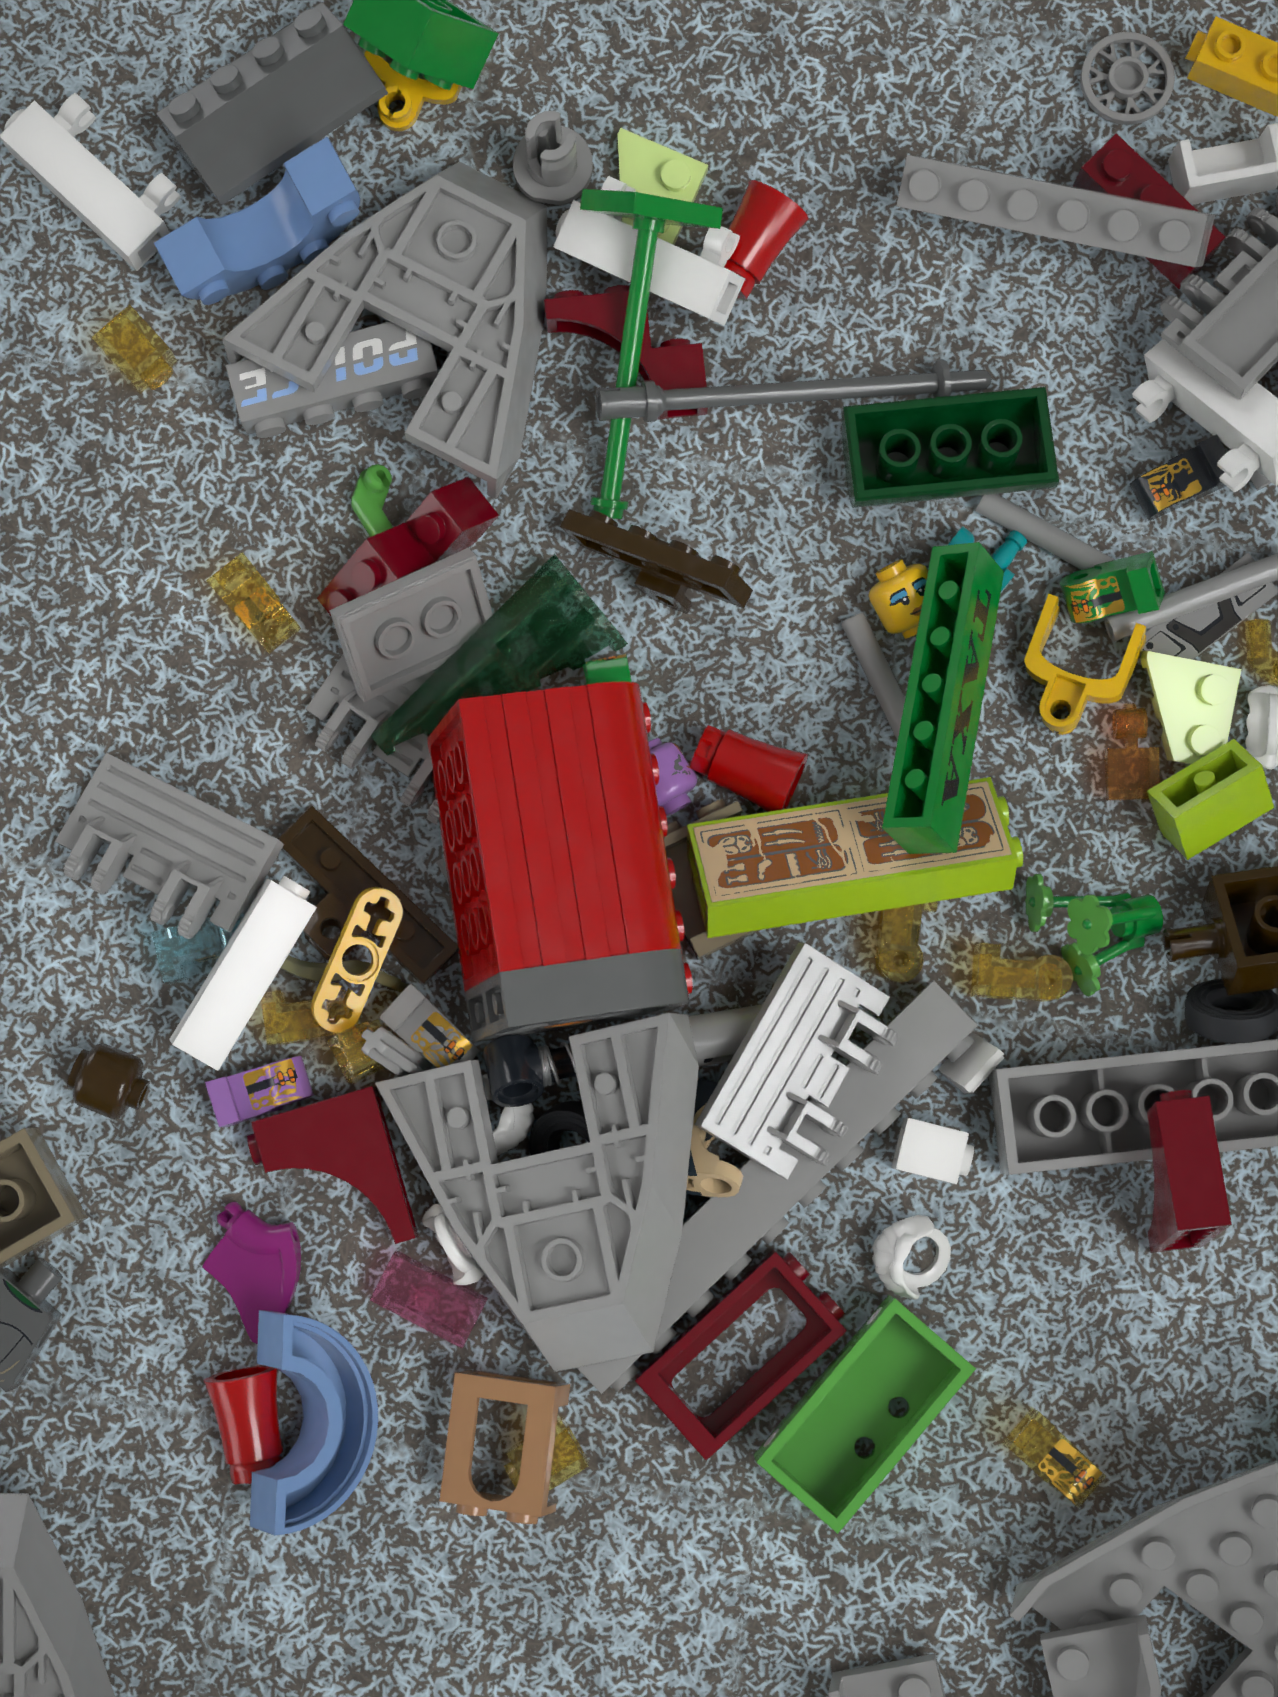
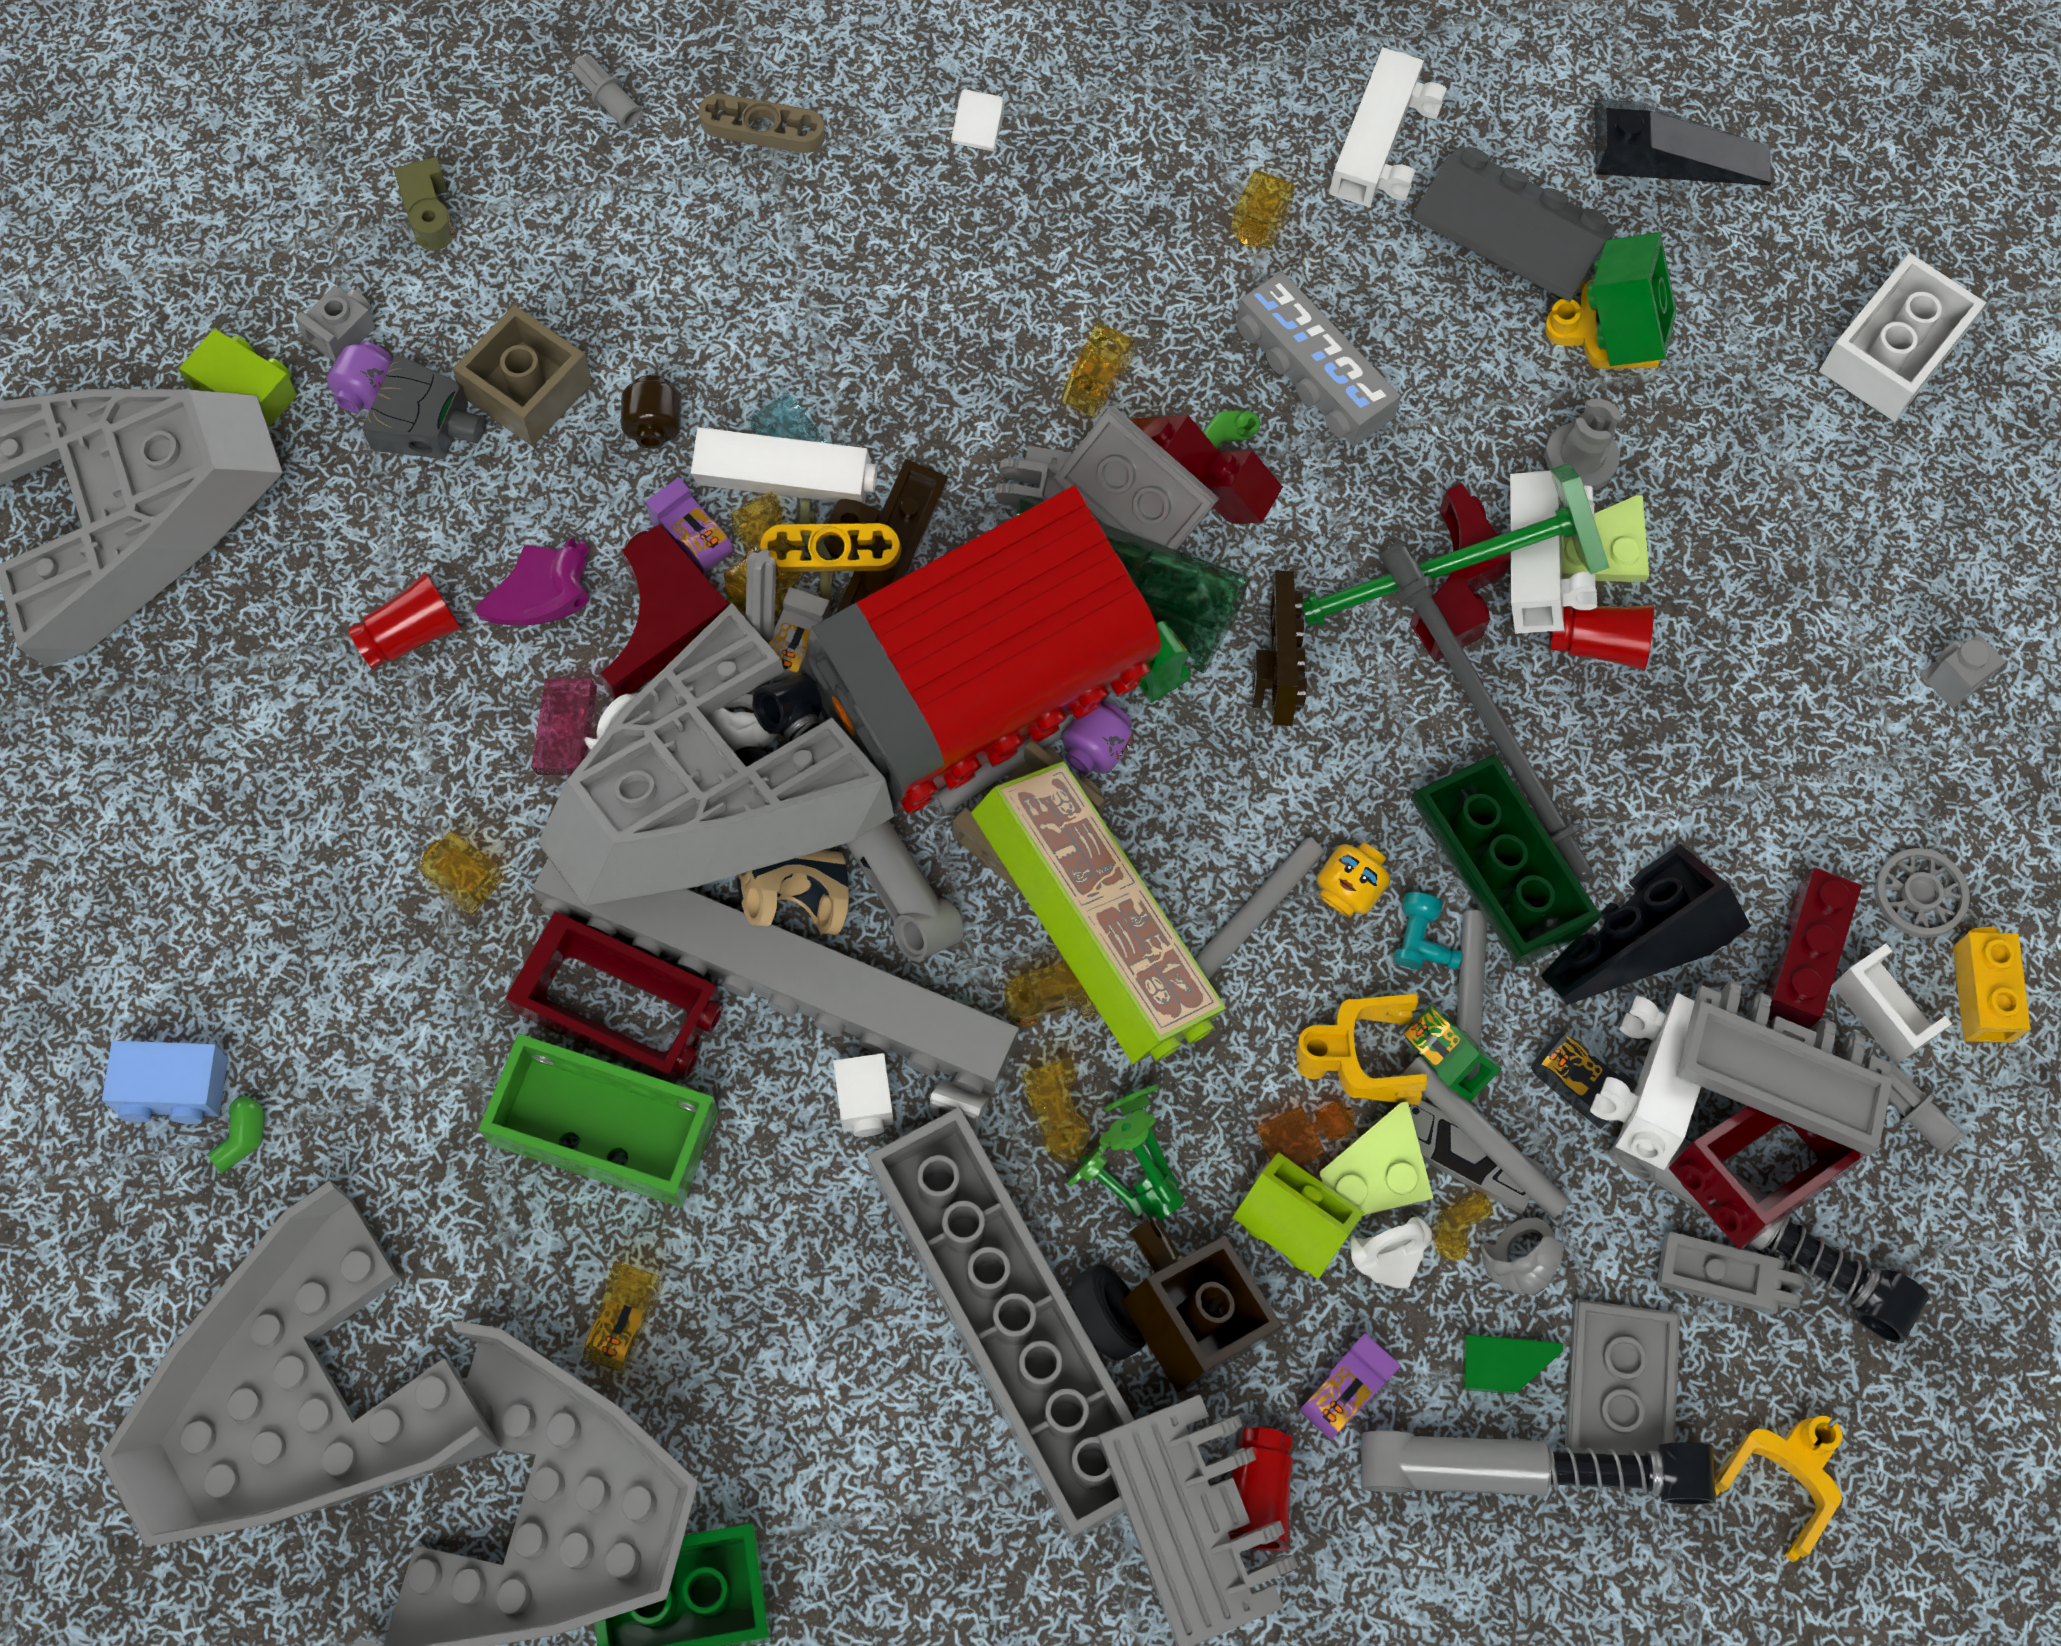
camera: 65 degrees right, 15 degrees down
(172, 844) = (865, 379): light grey hinge -> none
(268, 237) = (1398, 263): medium blue brick -> none
(335, 1429) = (421, 689): medium blue brick -> none
(451, 265) = (1447, 405): light grey piece -> none
(532, 1491) = (422, 859): medium nougat panel -> none
(749, 767) = (1141, 806): red plant -> none
(790, 1058) = (892, 921): hinge -> none
(894, 1246) = (734, 1113): white piece -> none
(943, 699) = (1273, 923): green brick -> none
(1056, 211) = (1763, 860): light grey brick -> none
(1067, 334) = (1670, 920): none -> black wedge
(1187, 1174) = (928, 1306): dark red arch -> none

